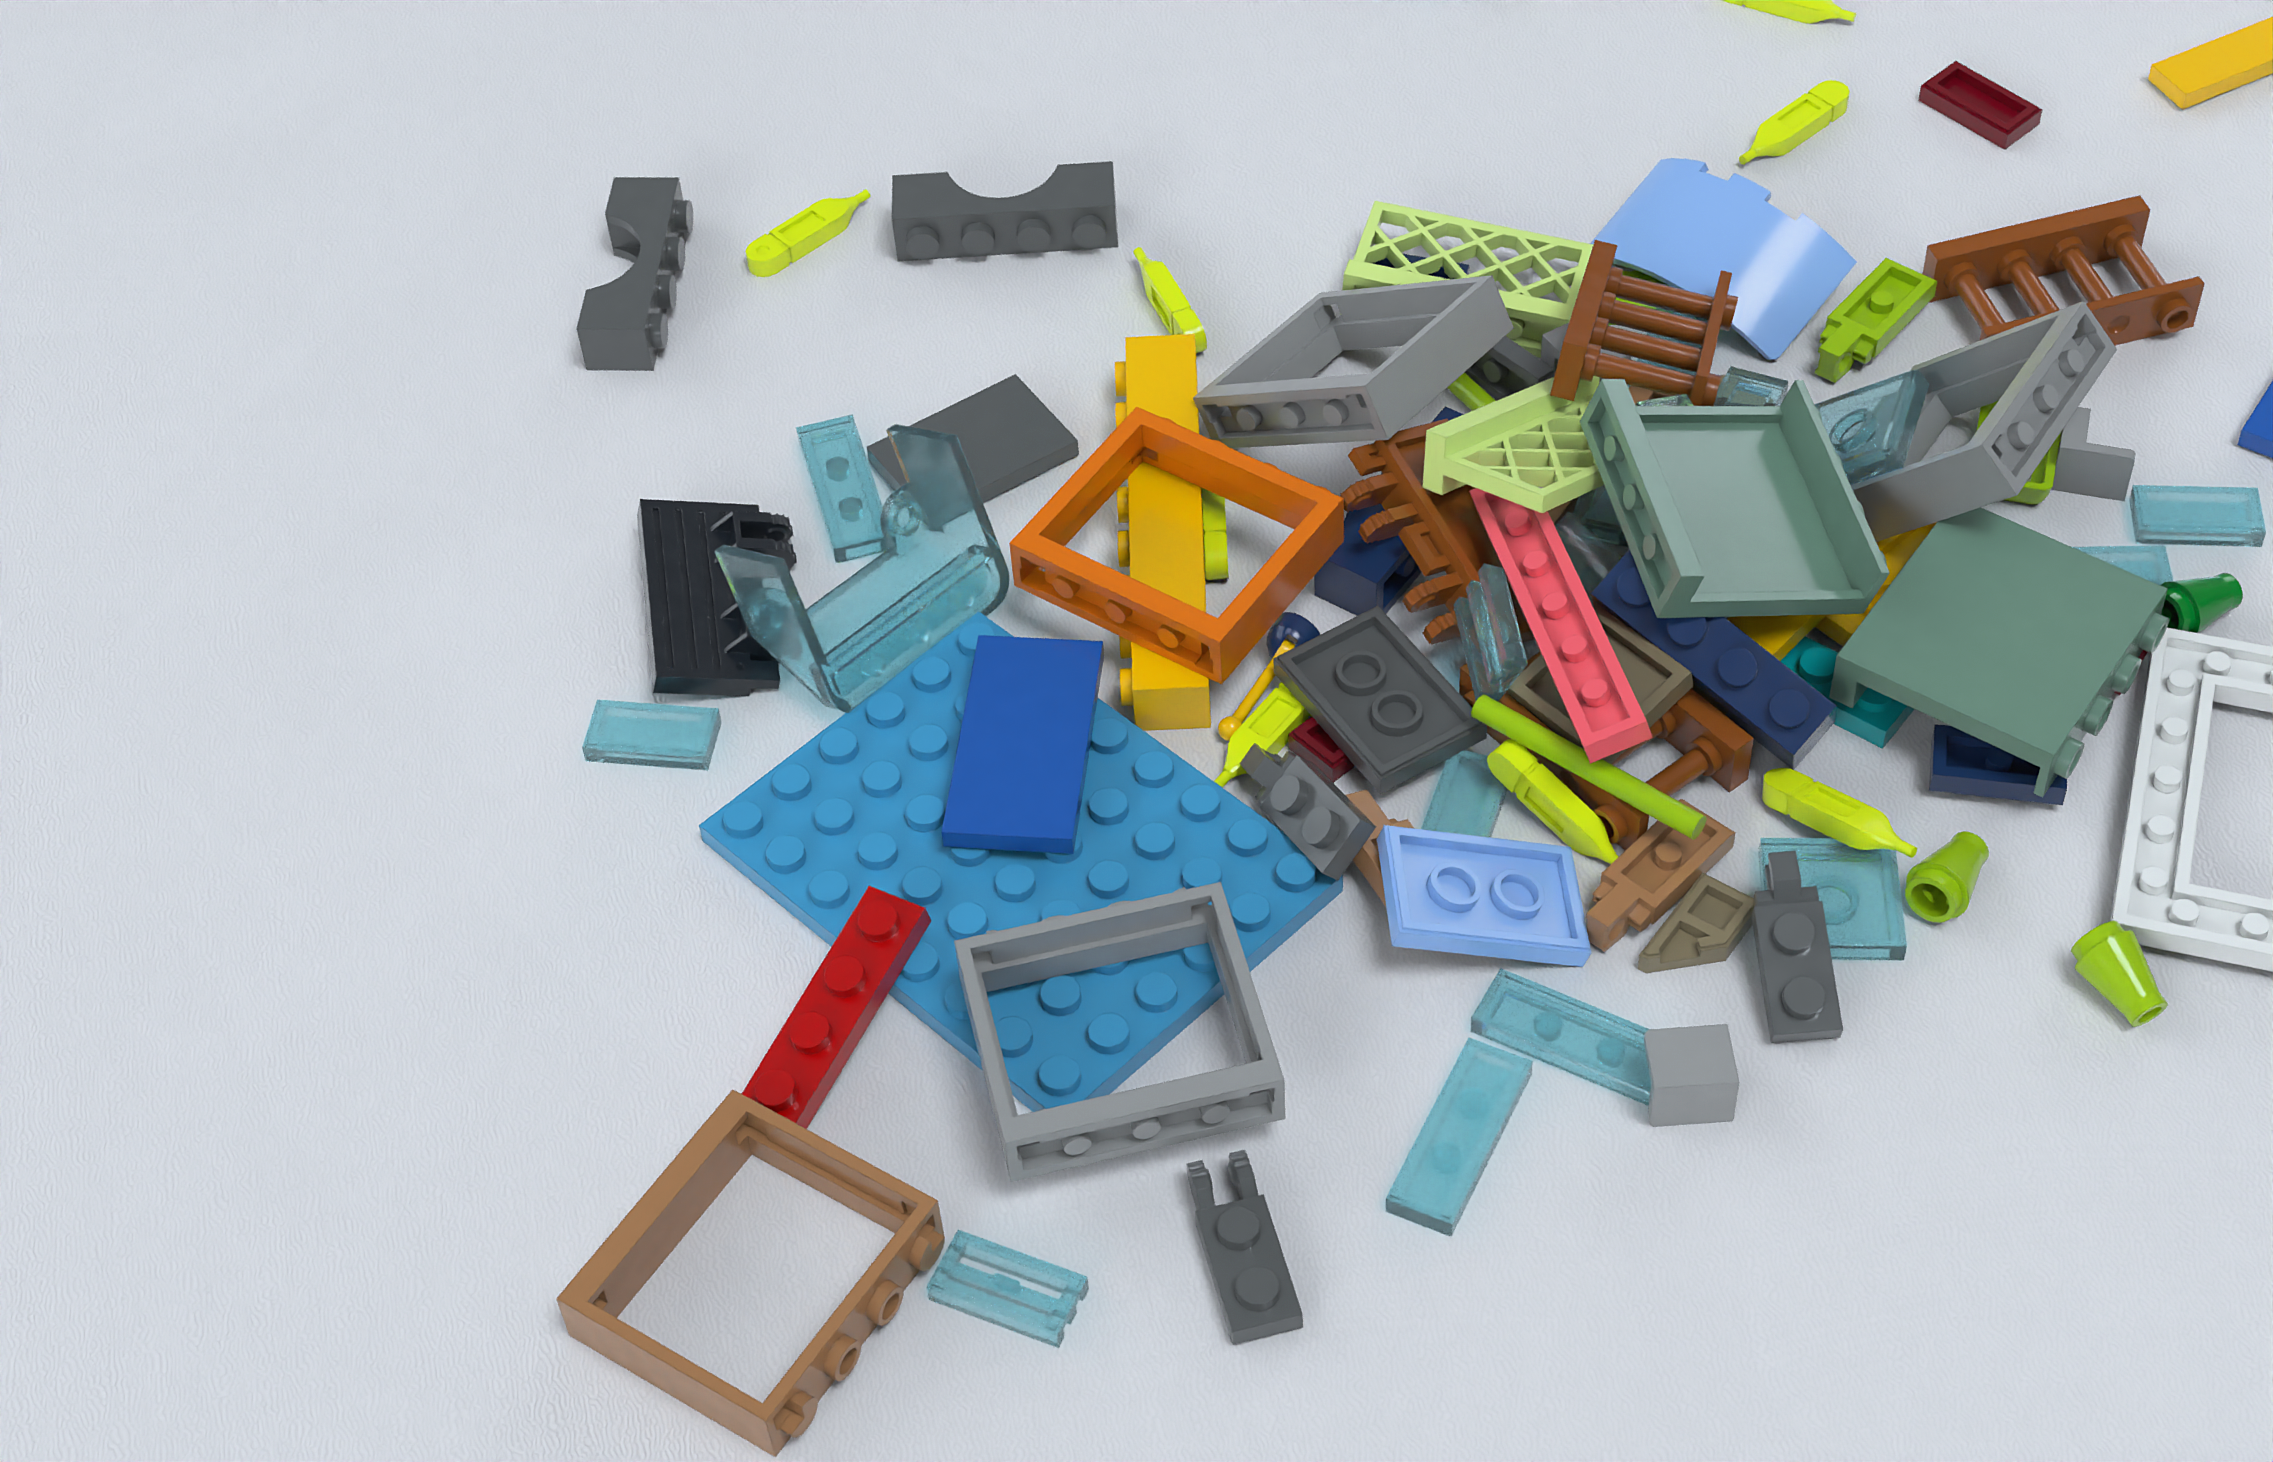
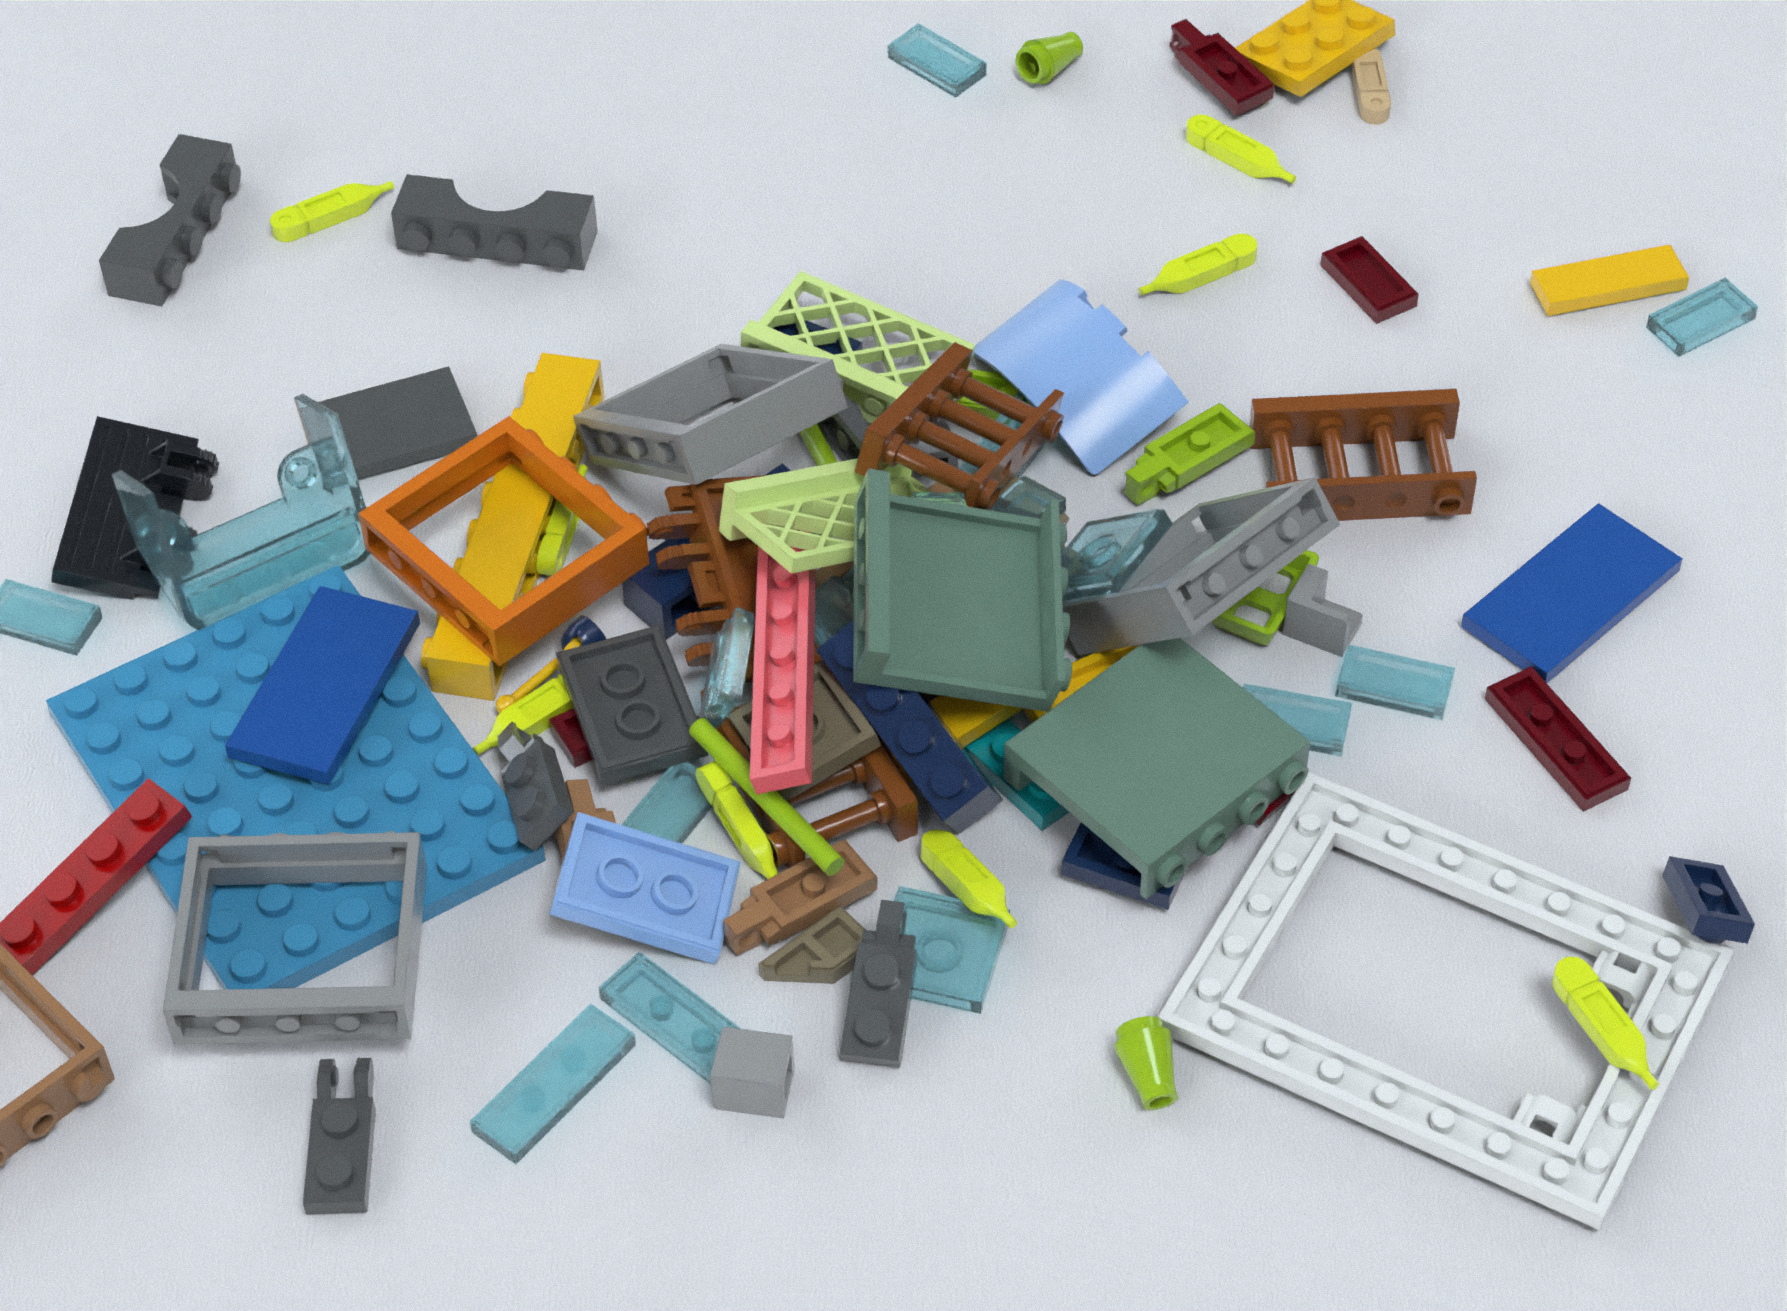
camera: 10 degrees right, 0 degrees up
(843, 487) = (271, 434): clear light blue tile -> none
(1049, 1314) = (177, 1156): clear light blue tile -> none
(1169, 300) = (602, 328): neon yellow piece -> none
(1946, 879) = (1037, 952): lime cone -> none
(2200, 601) = (1352, 758): green cone -> none

